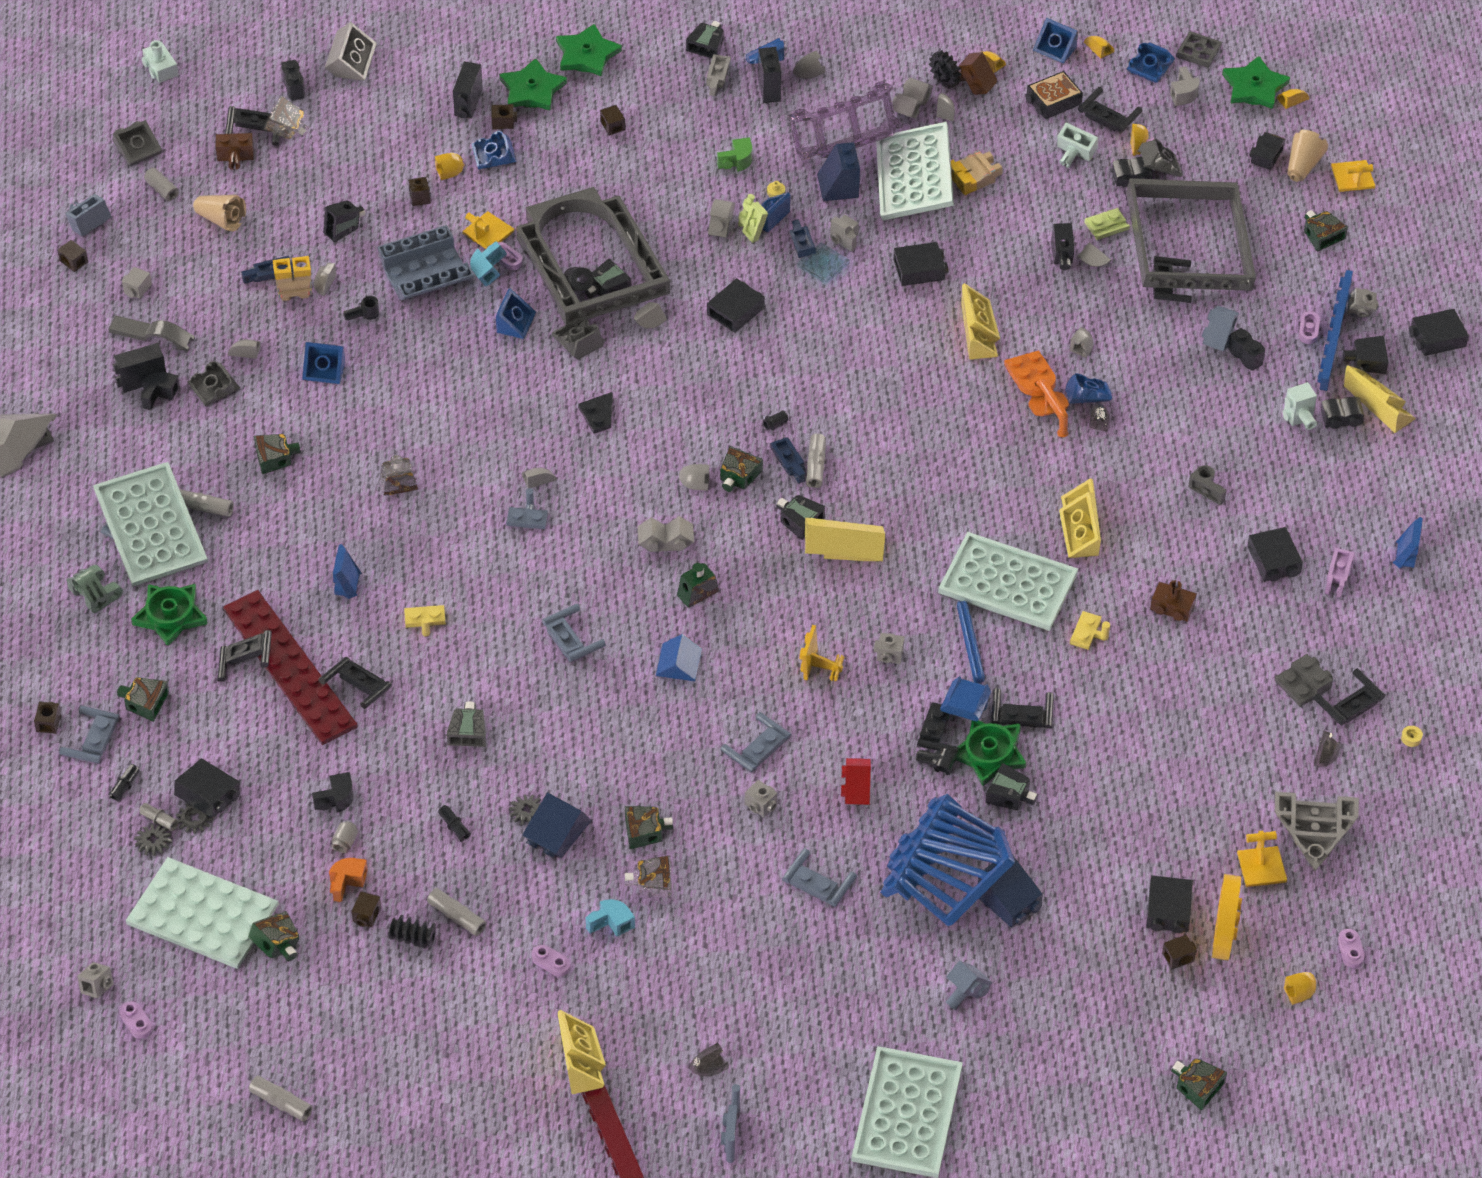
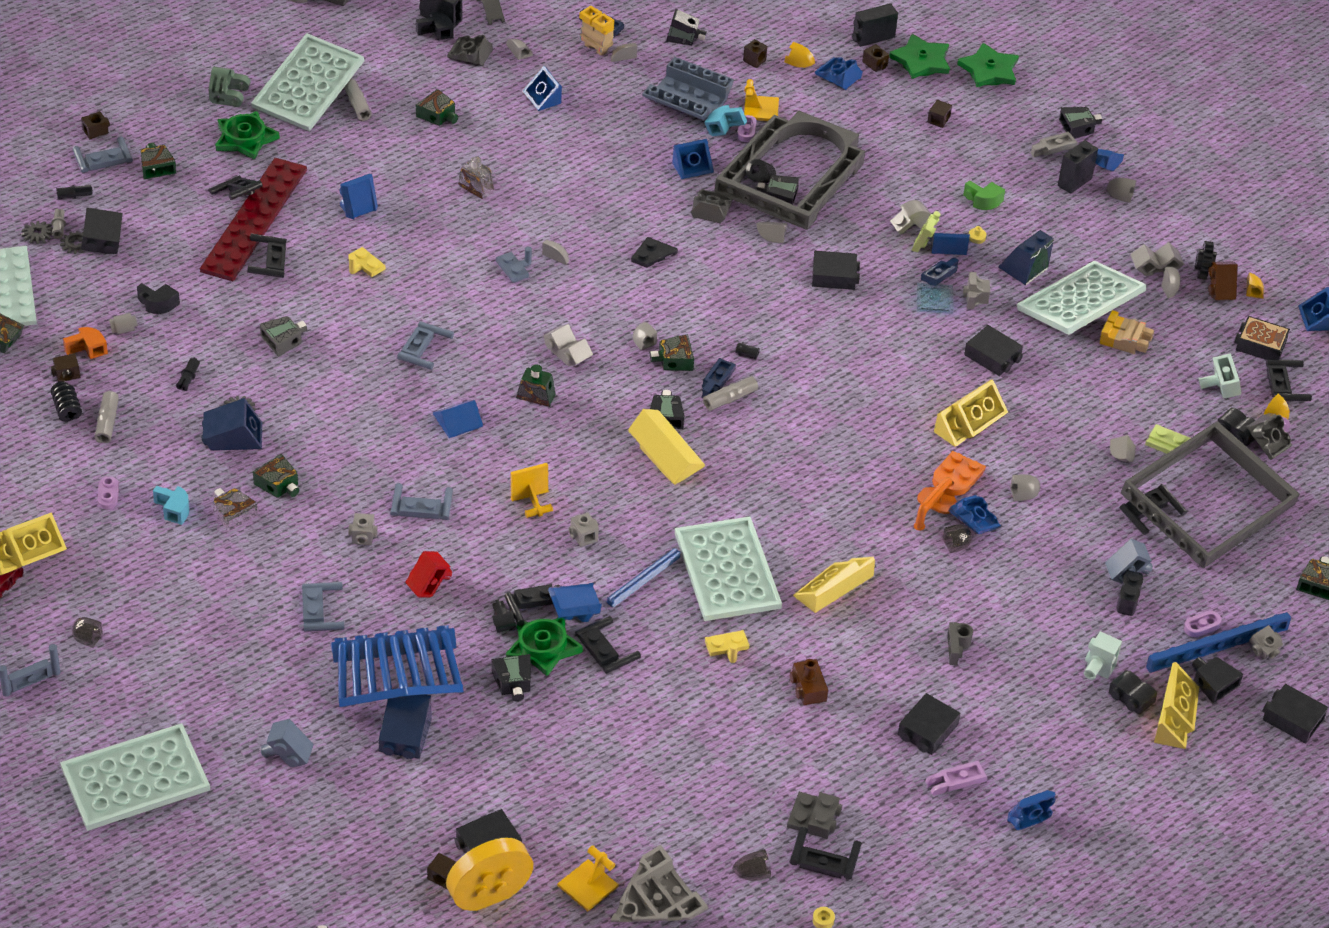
camera: 50 degrees right, 5 degrees down
(367, 309) = (617, 85): black axle -> none
(879, 91) = (1071, 247): clear purple windscreen -> none
(1062, 250) = (1106, 421): black torso -> none

